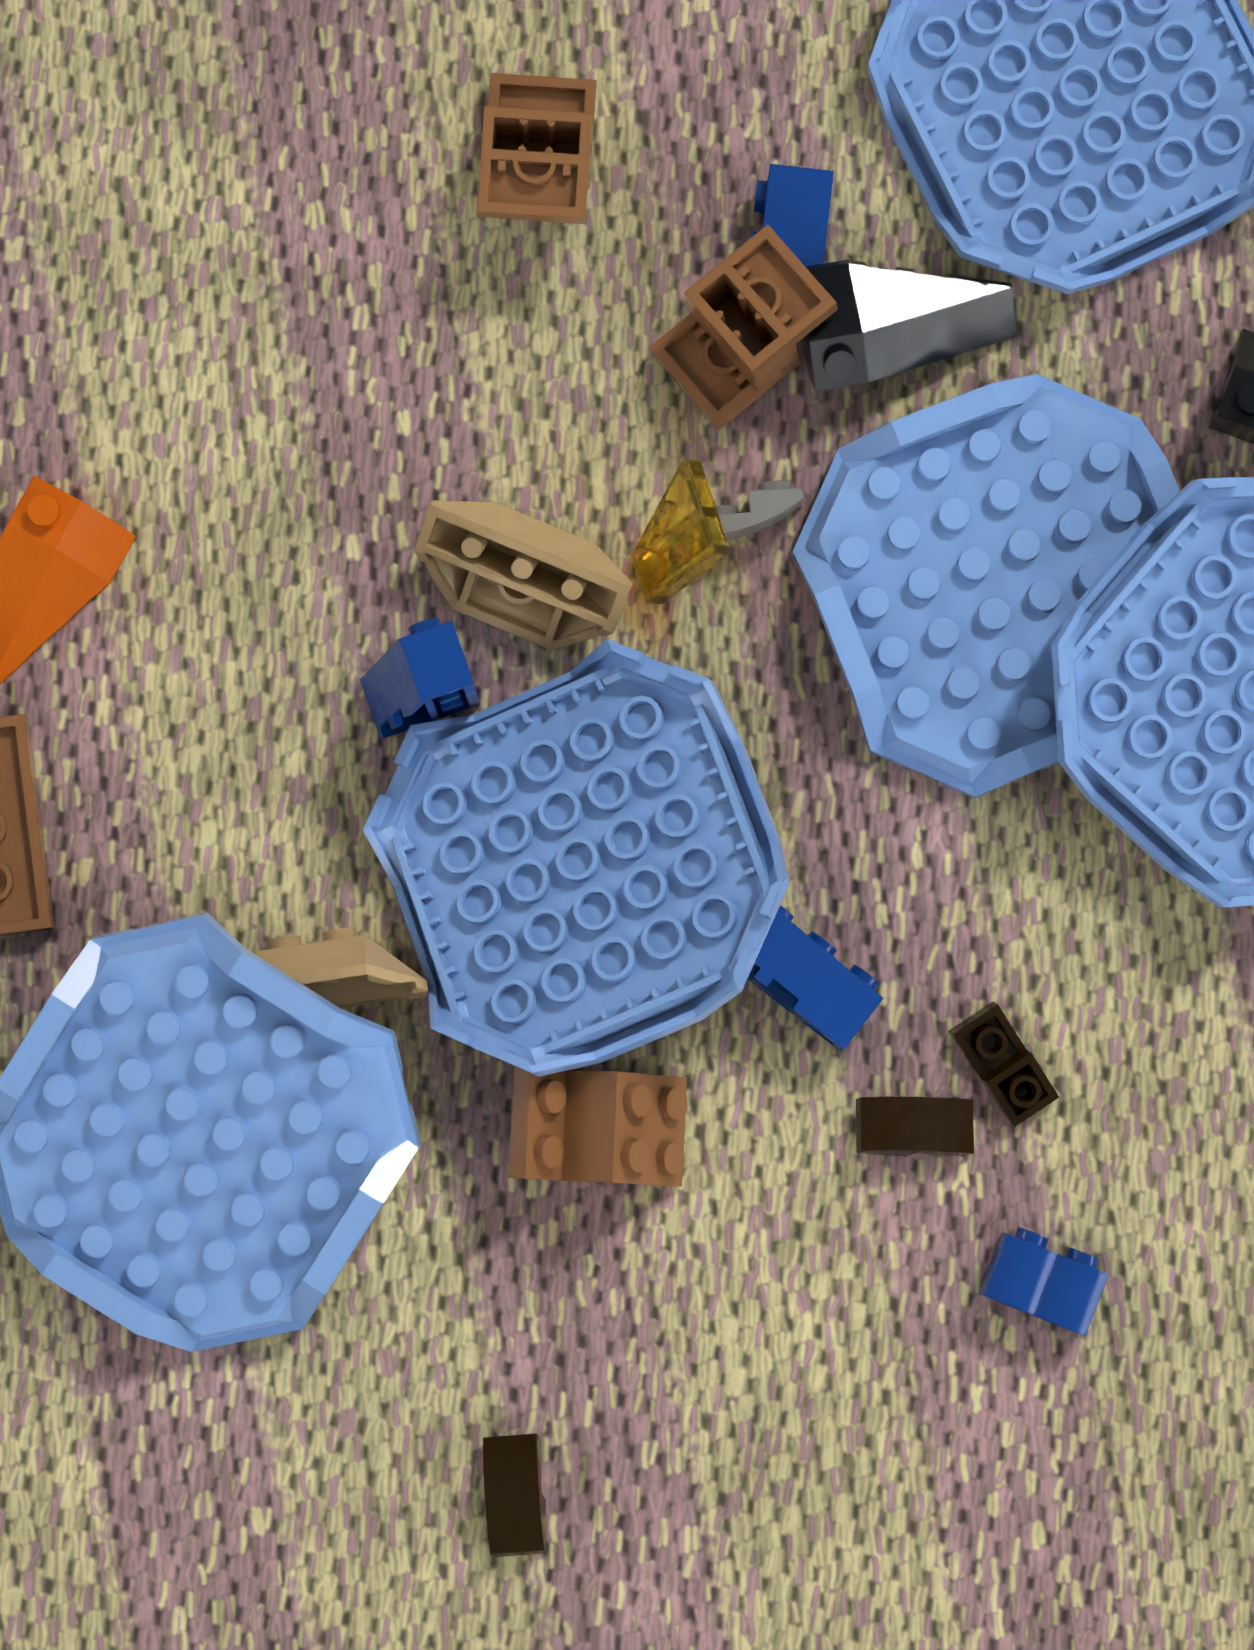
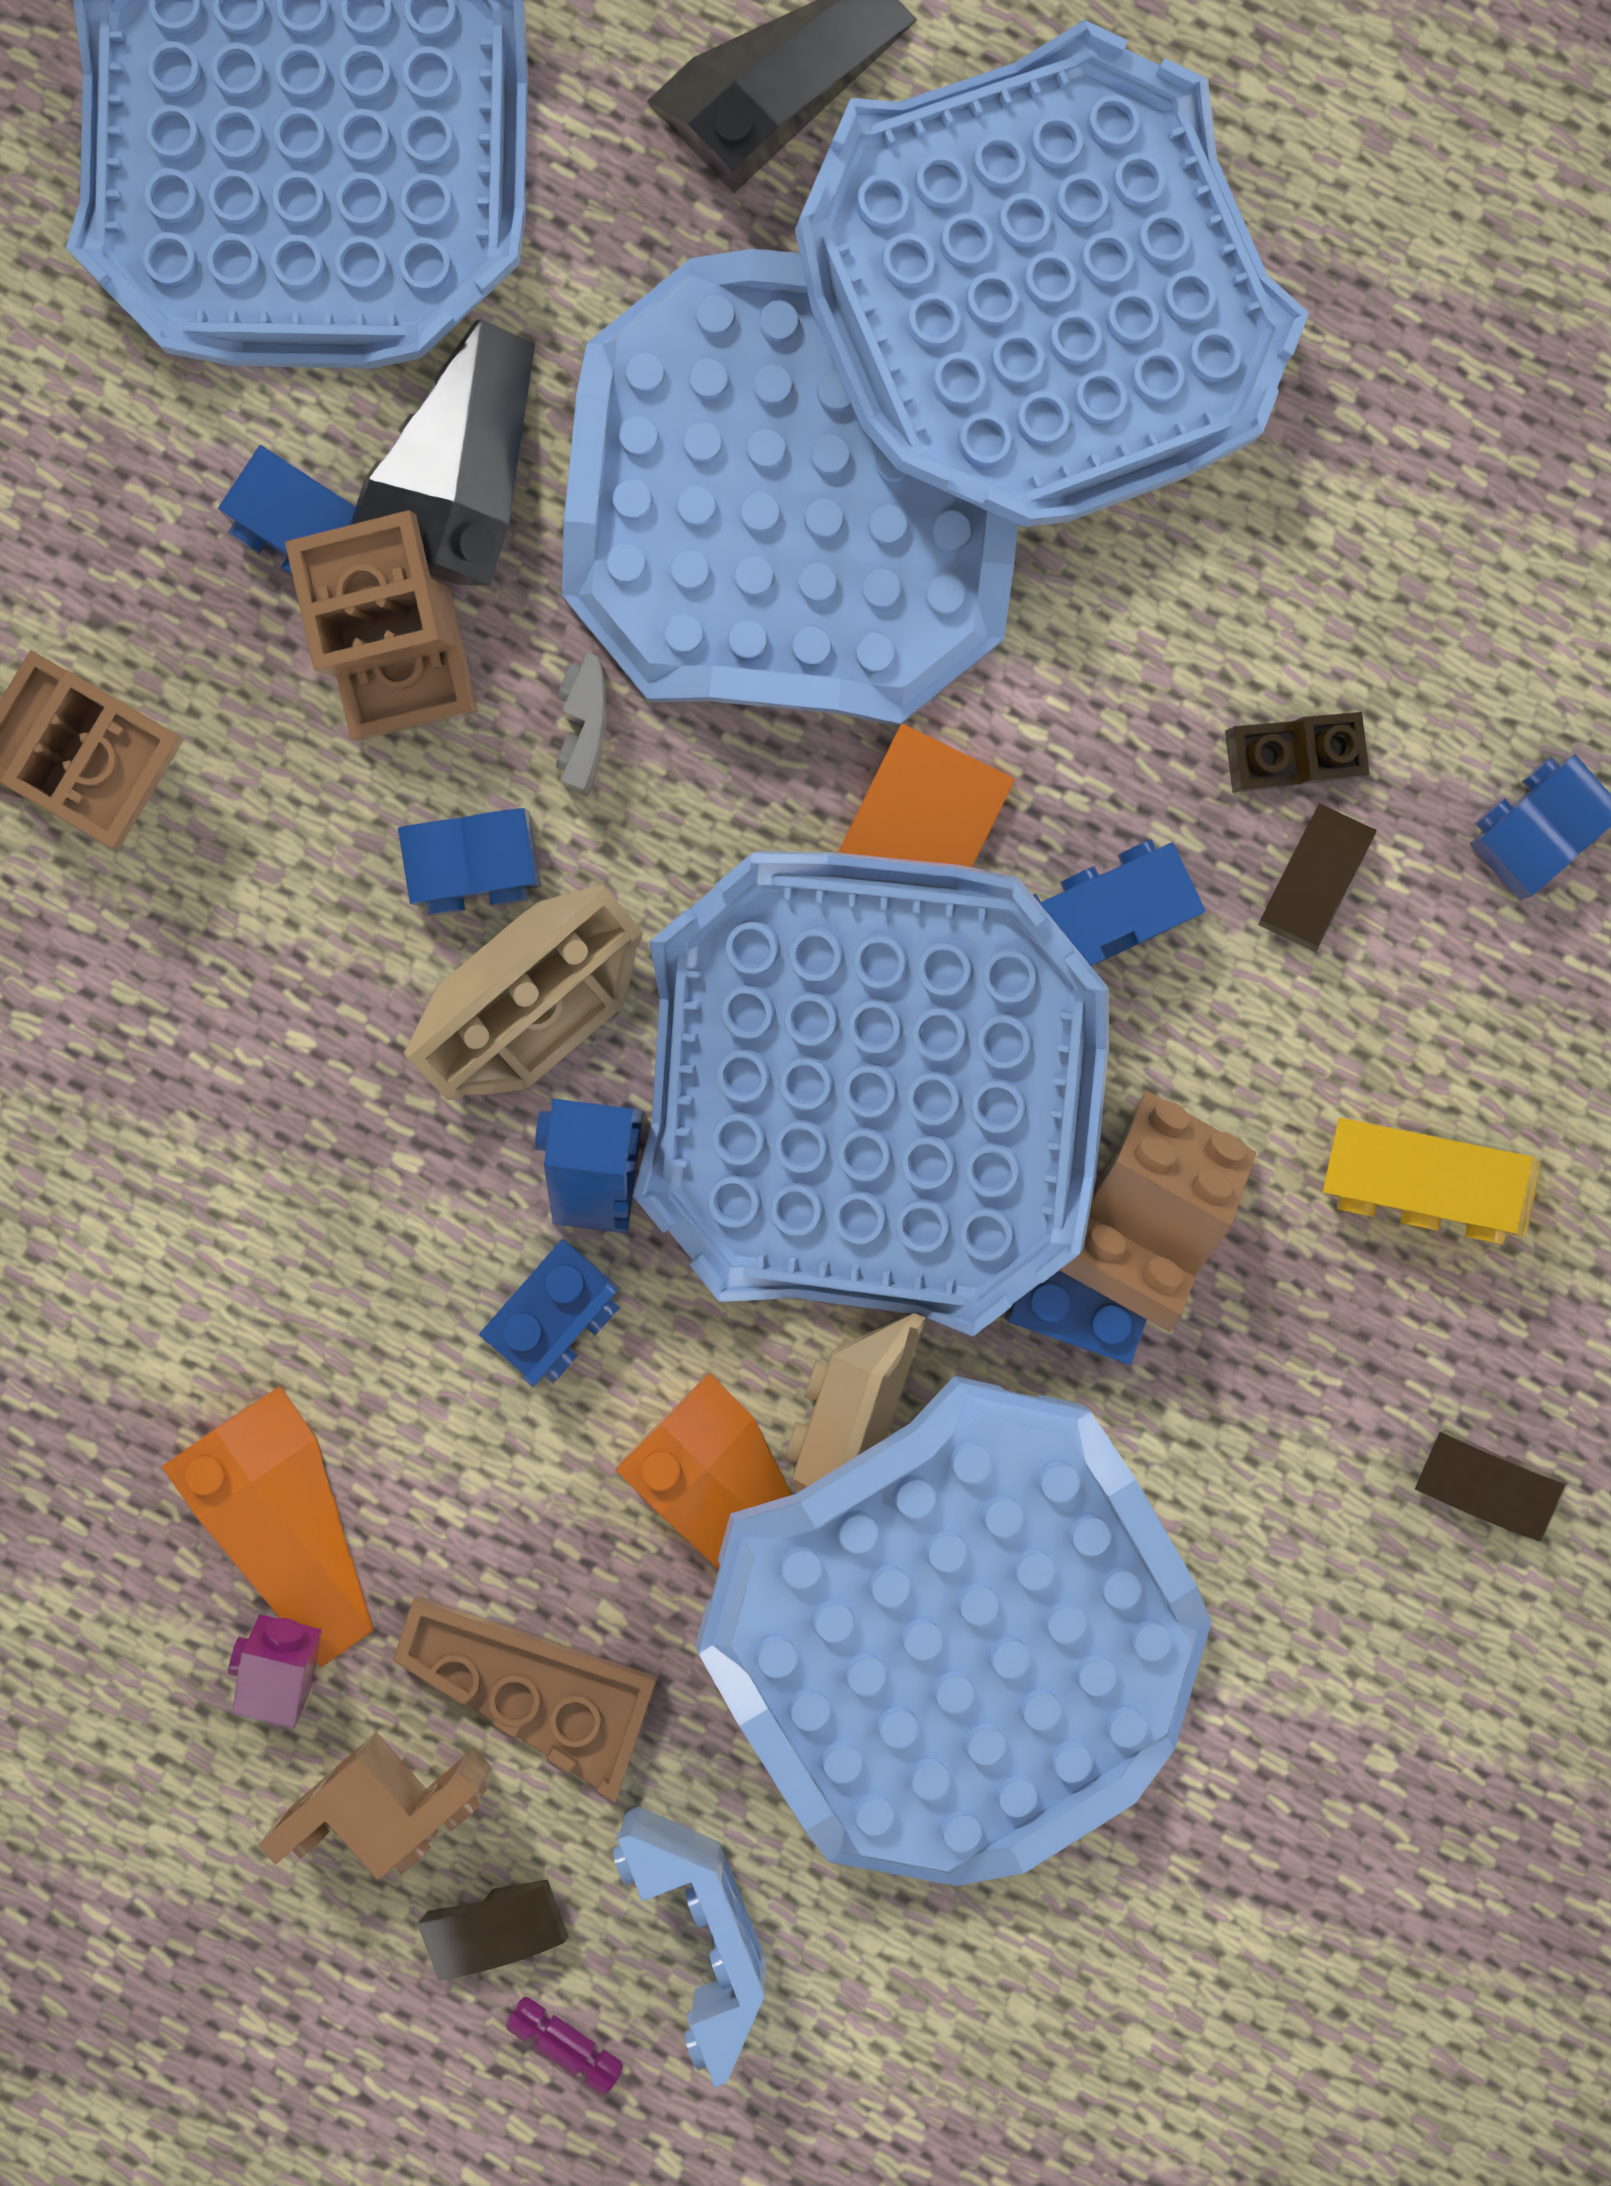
camera: 65 degrees left, 5 degrees up
(234, 878) = (704, 1466): none -> orange wedge
(291, 711) = (550, 1313): none -> blue bracket
(486, 1105) = (1079, 1317): none -> blue brick
(603, 479) = (470, 859): none -> blue brick
(680, 537) = (575, 807): clear yellow wing -> none
(727, 1330) = (1431, 1180): none -> yellow wedge
(819, 802) = (927, 804): none -> orange tile

